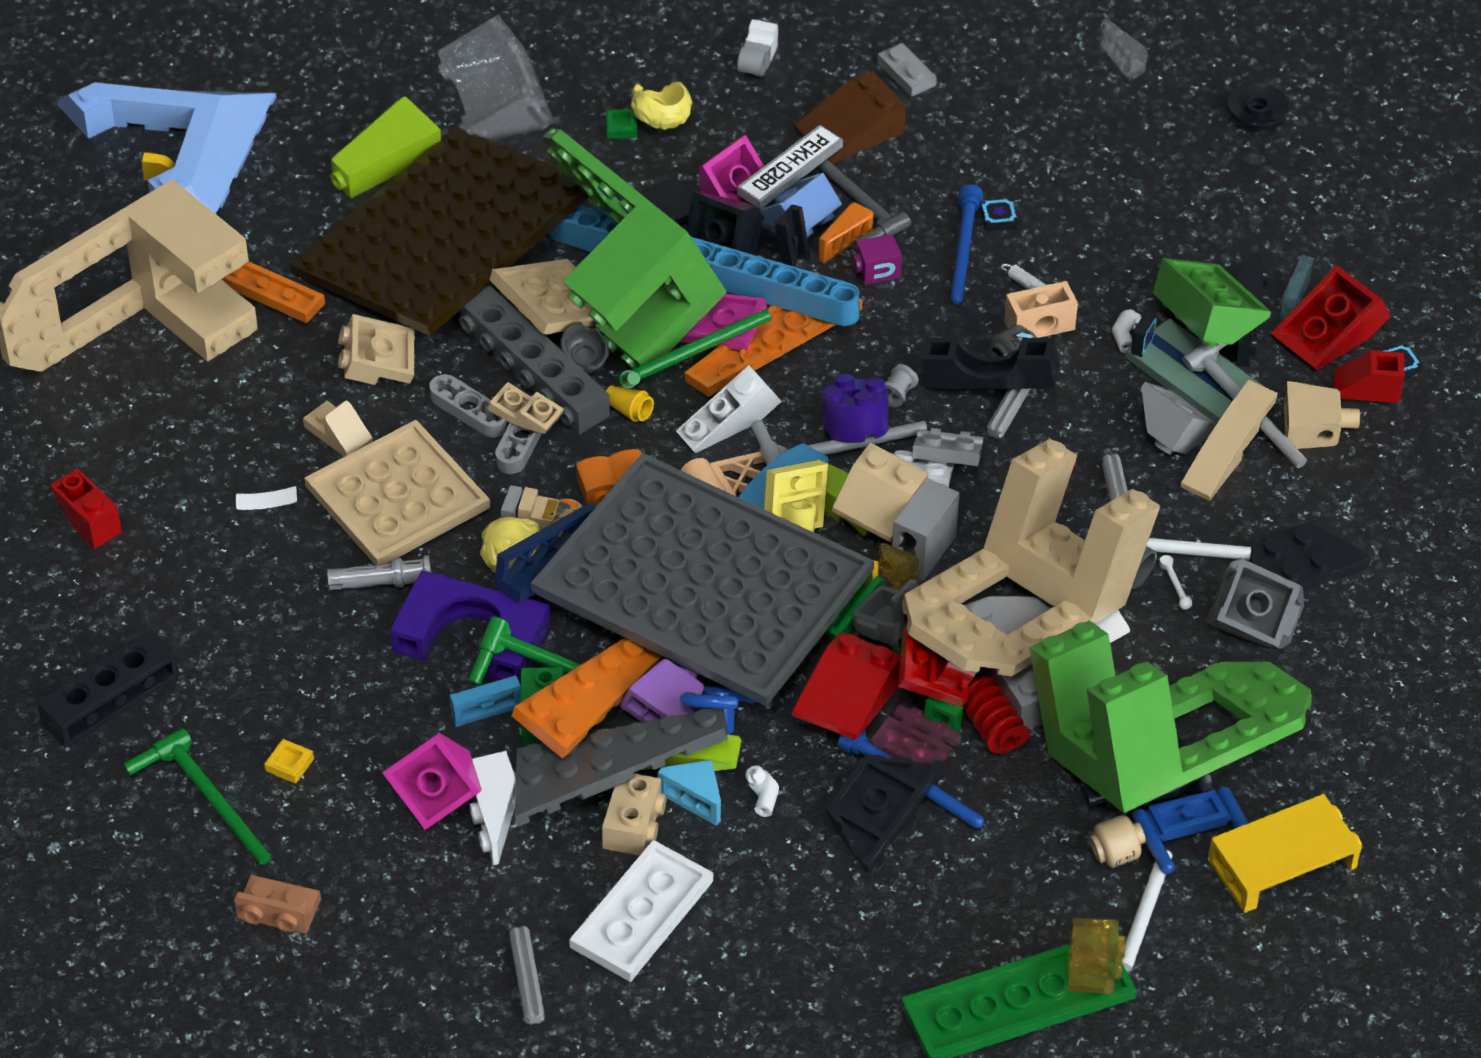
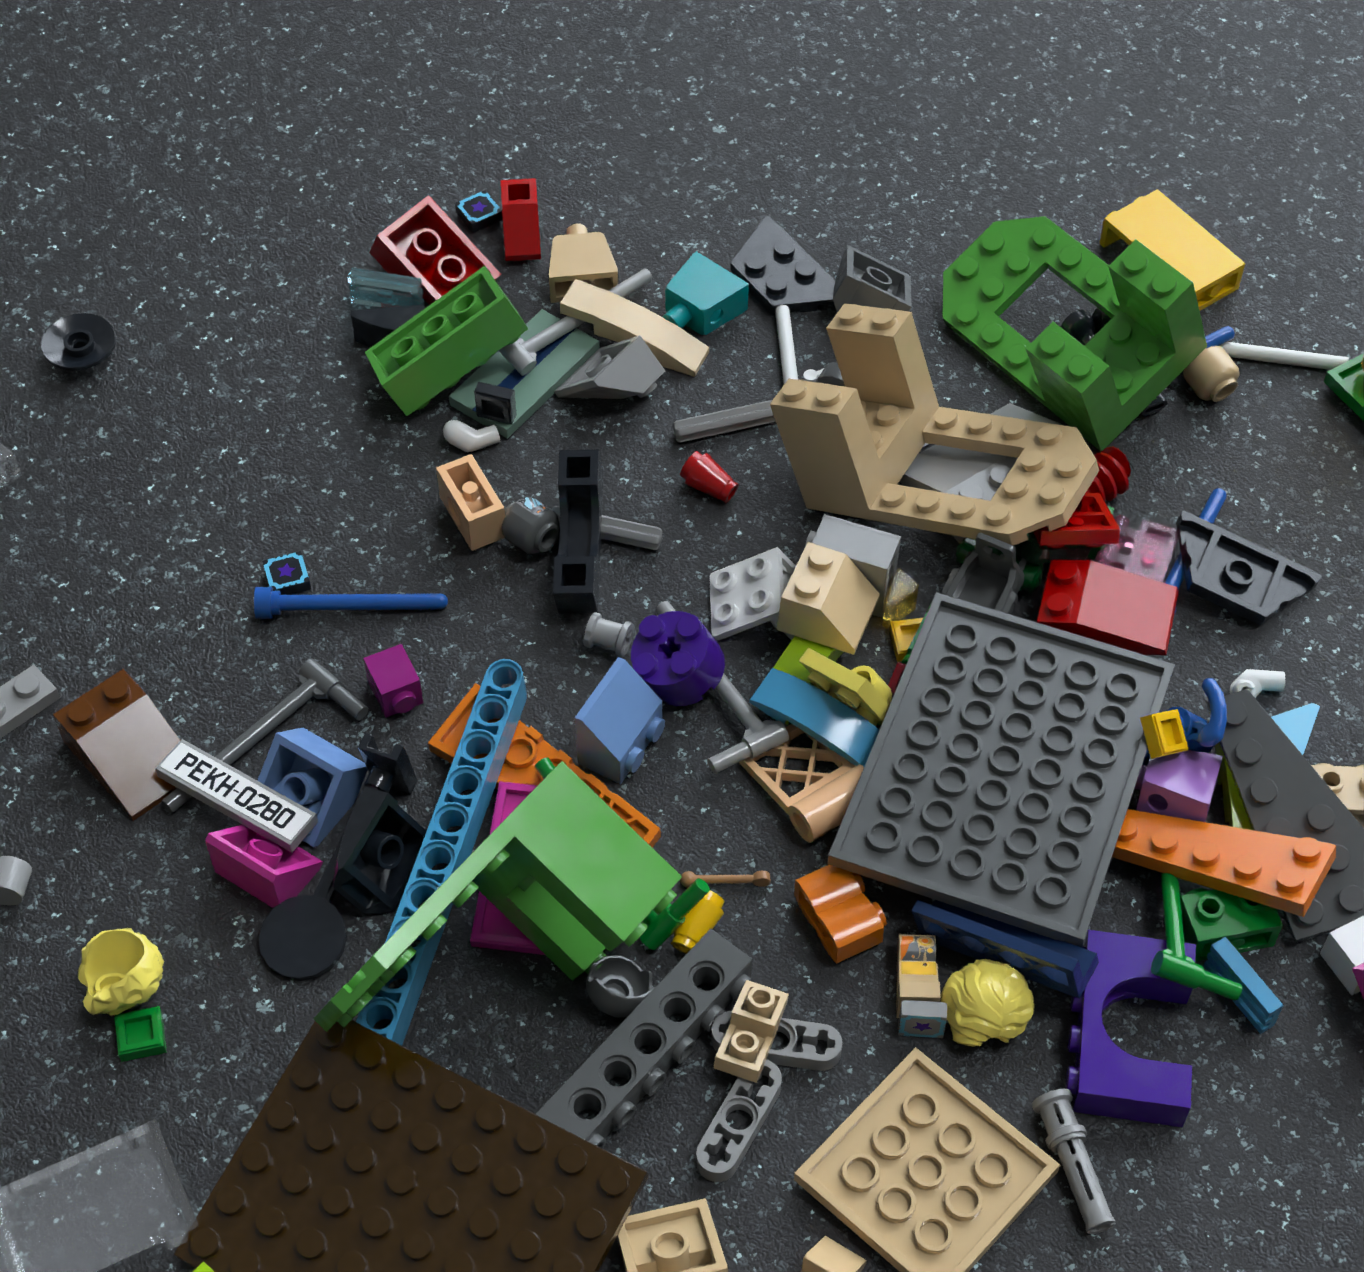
camera: 100 degrees left, 5 degrees up
(541, 294) = (534, 1033): tan plate -> none
(668, 409) = (759, 878): none -> medium nougat hinge
(700, 673) = (1164, 733): none -> yellow tile
(729, 411) = (692, 802): white slope -> none
(802, 367) = (618, 723): none -> medium blue slope
(847, 227) = (342, 721): orange slope -> none
(947, 447) = (715, 569): light grey plate -> none
(1023, 277) = (405, 528): white piece -> none
(1266, 492) = (704, 295): none -> teal torso

